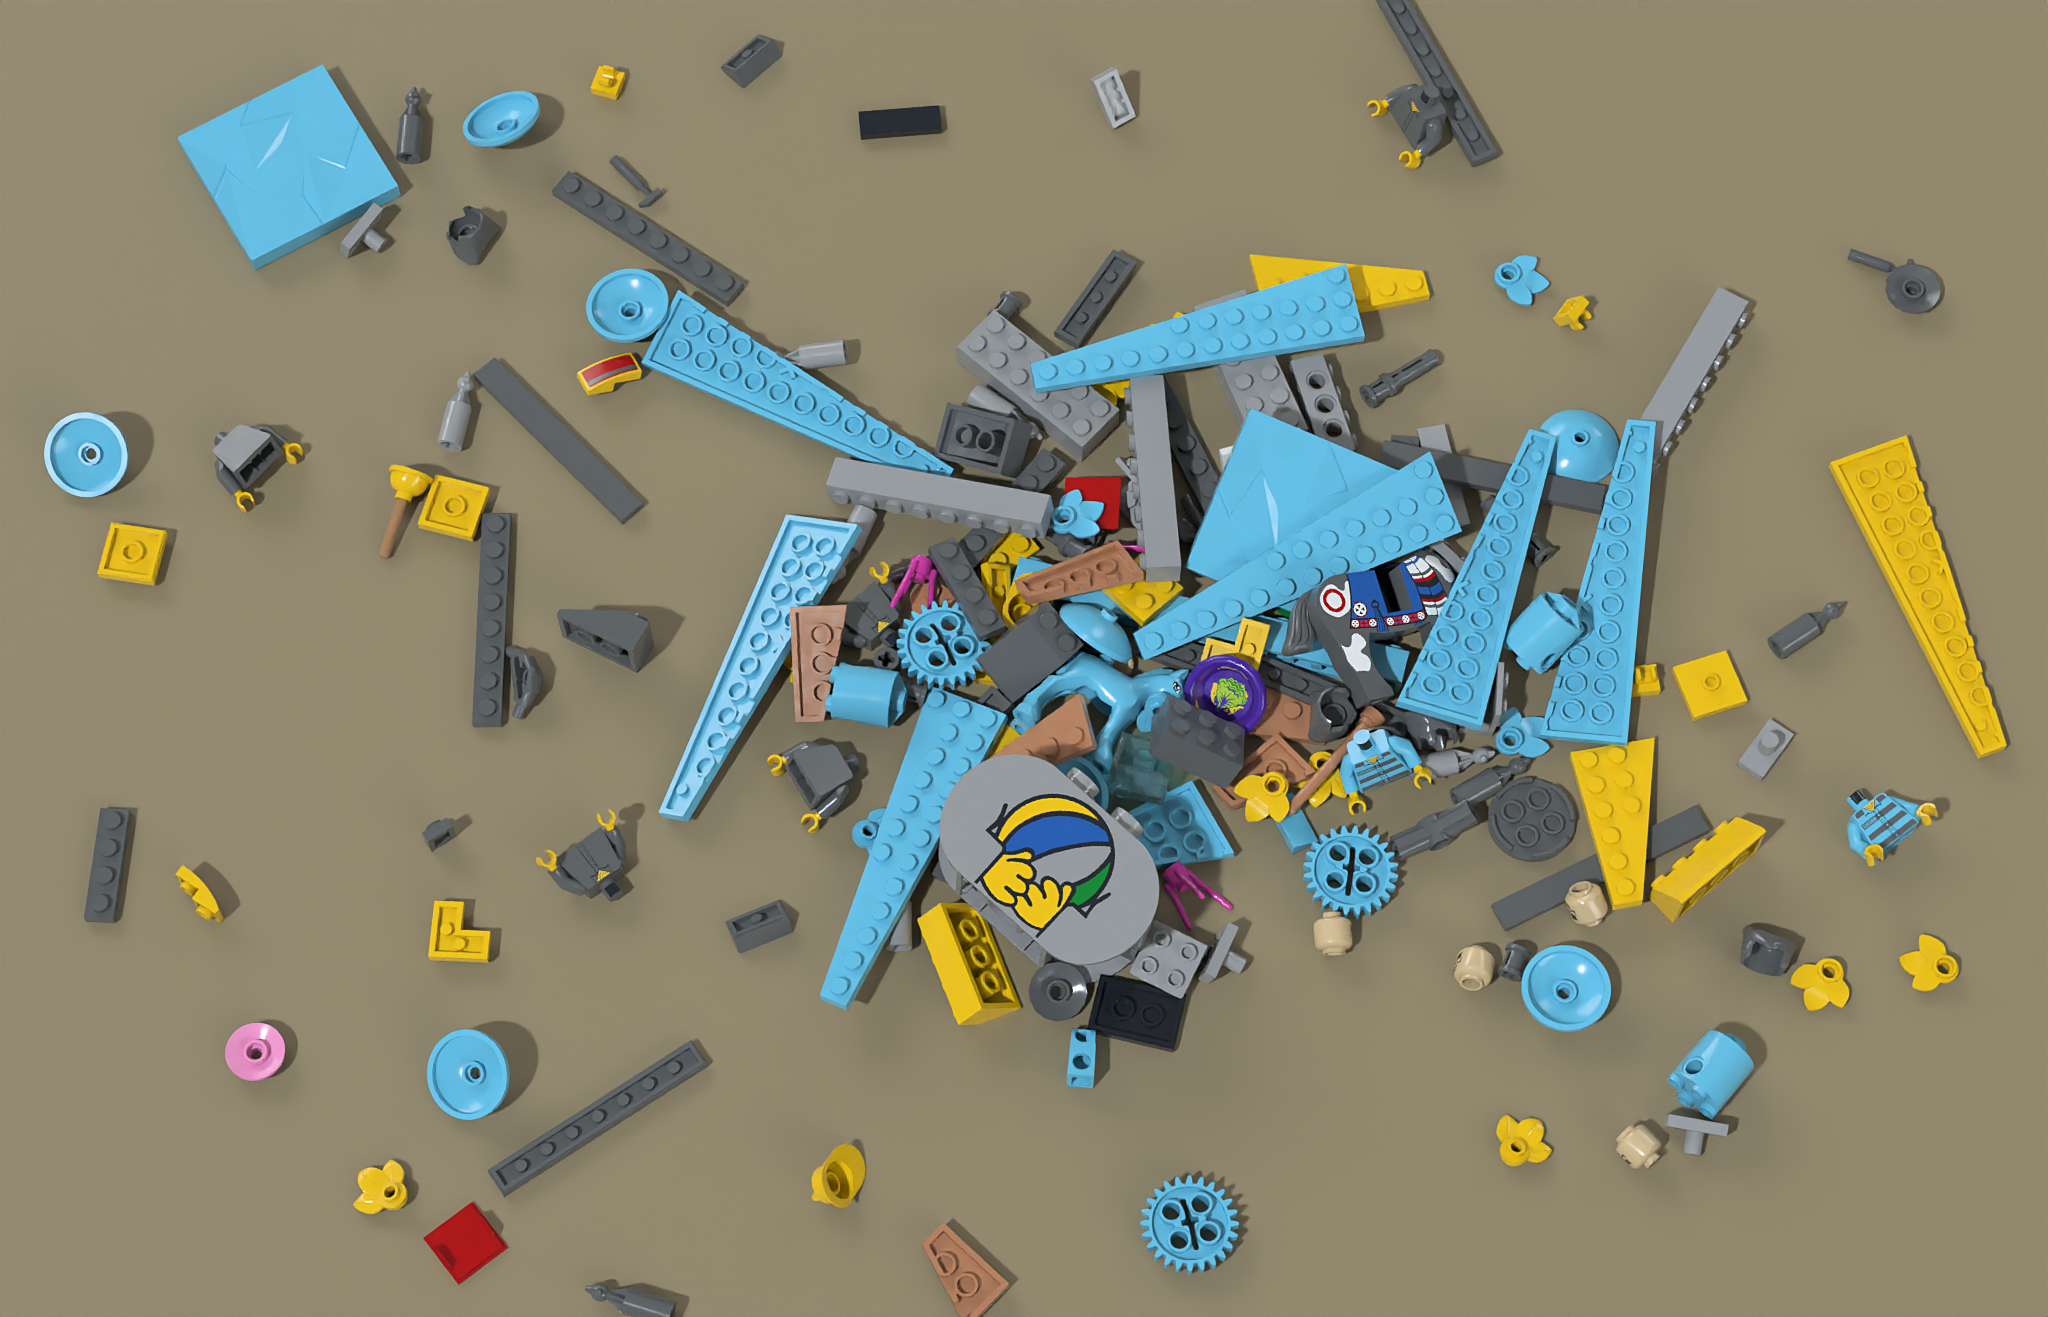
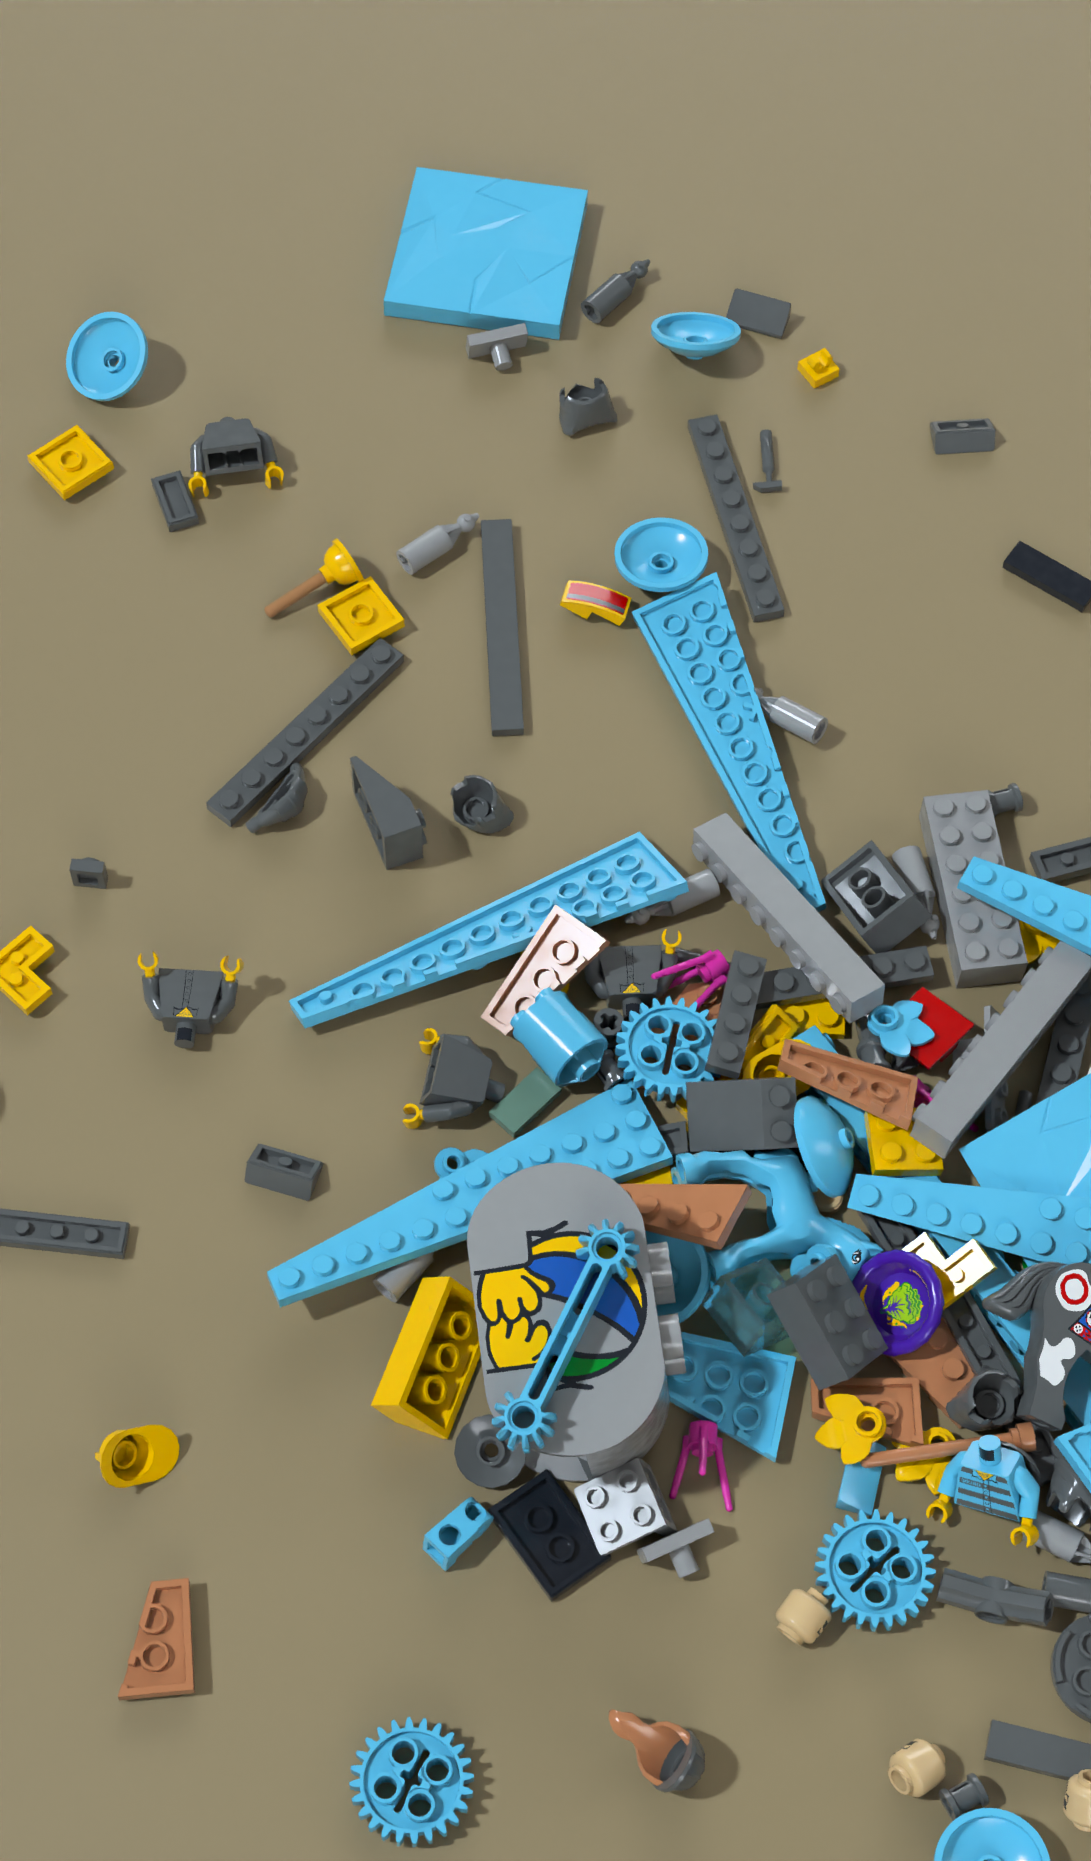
camera: 40 degrees right, 5 degrees down
(236, 525) = (175, 501): none -> dark grey tile
(529, 71) = (759, 313): none -> dark grey slope
(663, 579) = (479, 805): none -> dark grey hair
(875, 755) = (525, 1102): none -> sand green tile
(1069, 873) = (566, 1335): none -> medium azure arm
(1322, 1081) = (664, 1751): none -> piece

